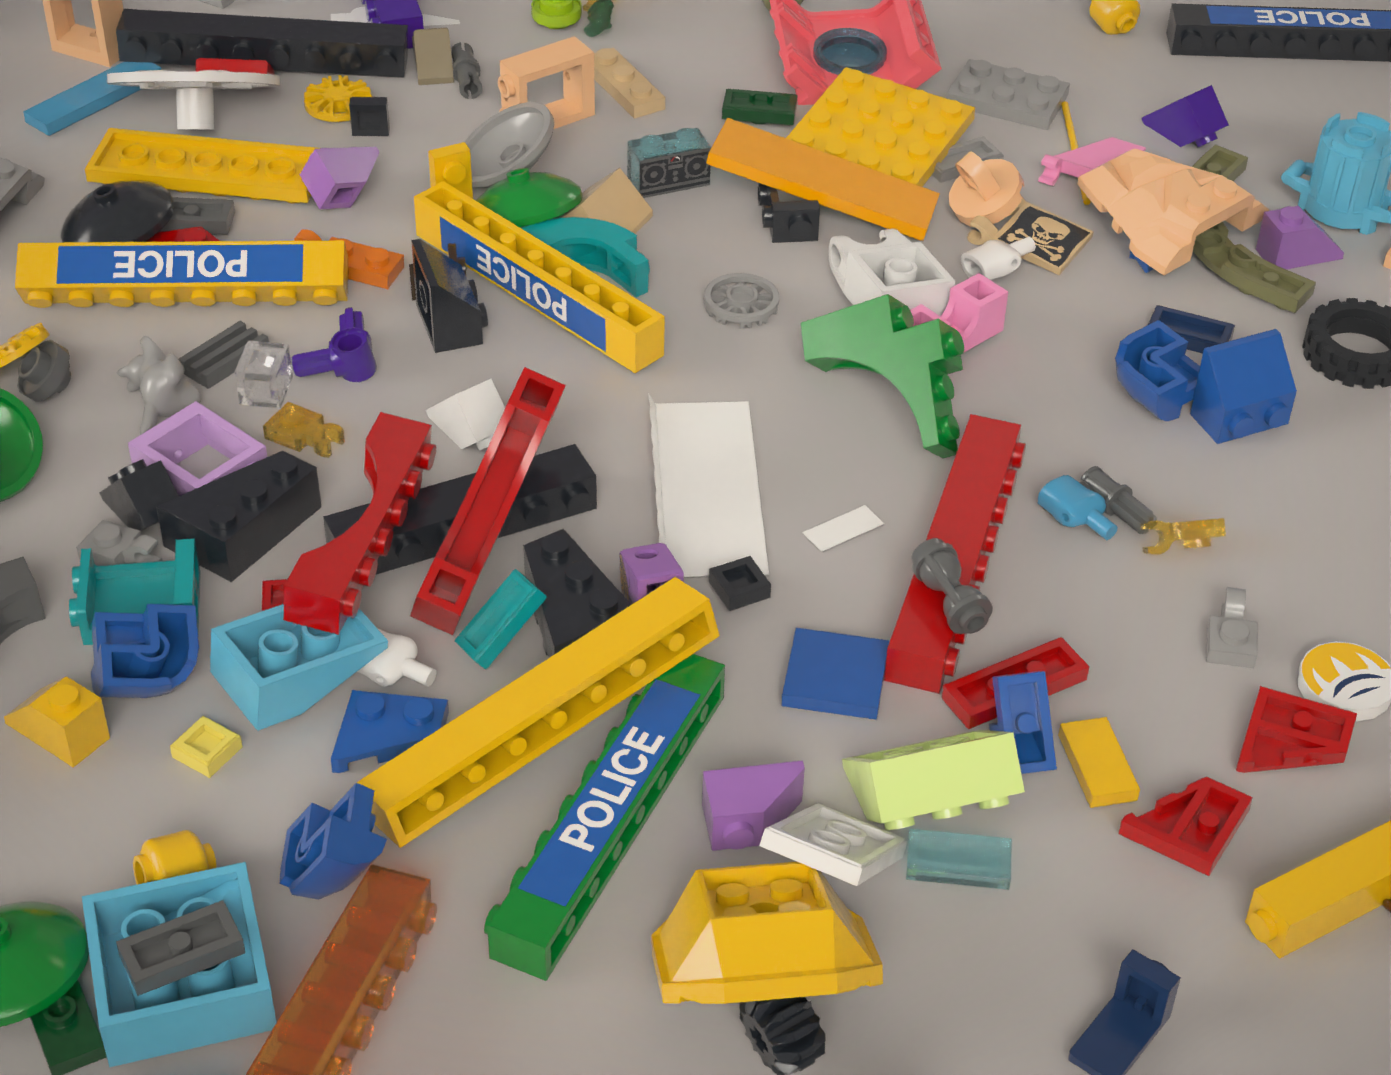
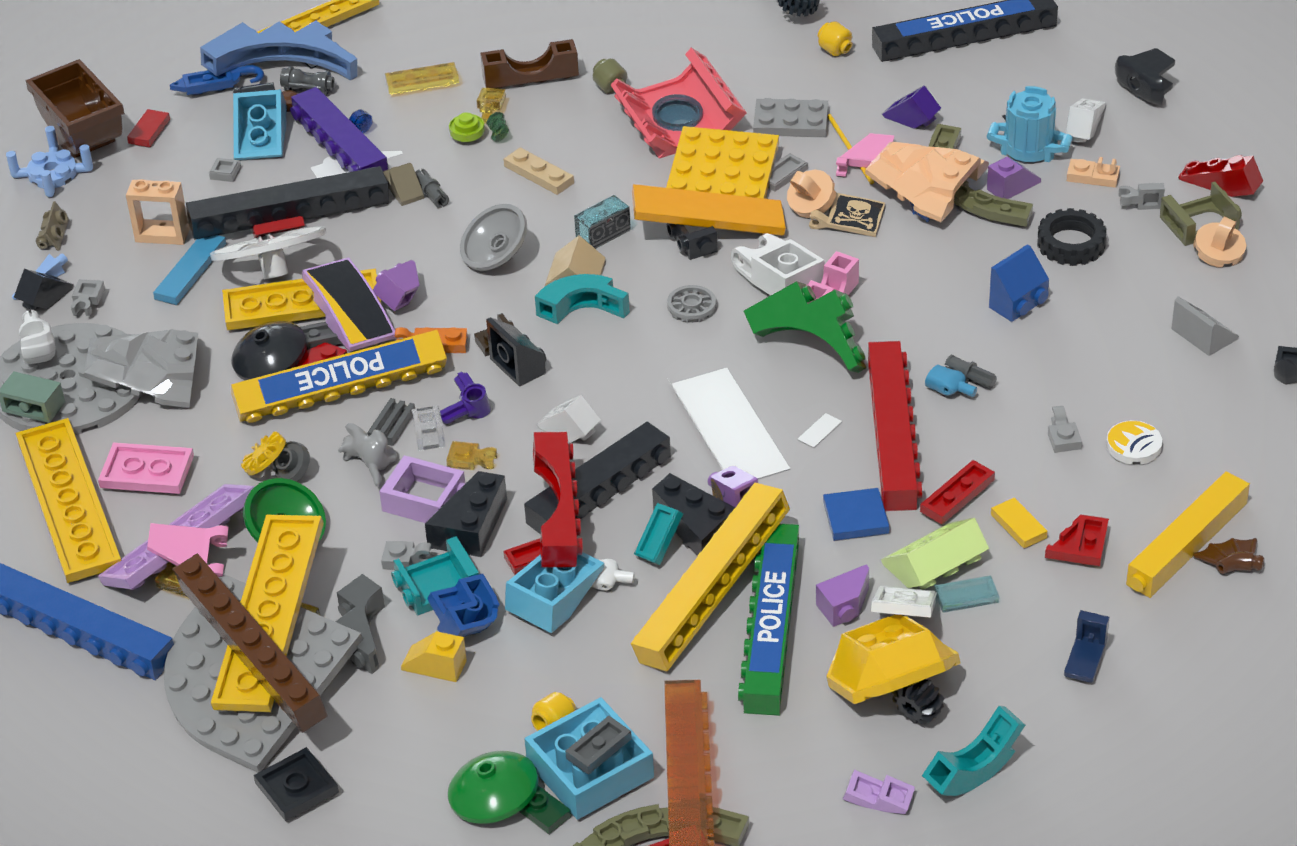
camera: 15 degrees left, 0 degrees up
(137, 492) = (402, 520): black slope -> none
(206, 746) = (526, 650): light yellow tile -> none
(255, 181) = (349, 304): none -> slope
(331, 847) = (636, 680): blue brick -> none
(333, 98) = (356, 228): yellow wheel -> none
(369, 116) = (389, 238): black plate -> none
(385, 726) = (622, 611): blue wing -> none
(452, 166) = (475, 272): yellow plate -> none
(487, 502) = (619, 504): red arch -> none
(531, 196) = (526, 273): green dish -> none
(541, 277) = (564, 320): yellow brick -> none
(566, 55) = (506, 170): light nougat window -> none
(739, 583) = (779, 476): black plate -> none
(759, 106) = (638, 167): dark green plate -> none
(940, 570) = (895, 439): dark grey piece -> none
(996, 258) = (834, 237): white piece -> none
(1025, 711) = (972, 504): blue slope -> none
(1156, 370) = (963, 286): blue brick -> none
(1193, 533) = (1020, 380): clear yellow plate -> none
(1196, 329) = (969, 254): dark blue tile -> none
(1294, 733) = (1117, 478): red wing -> none

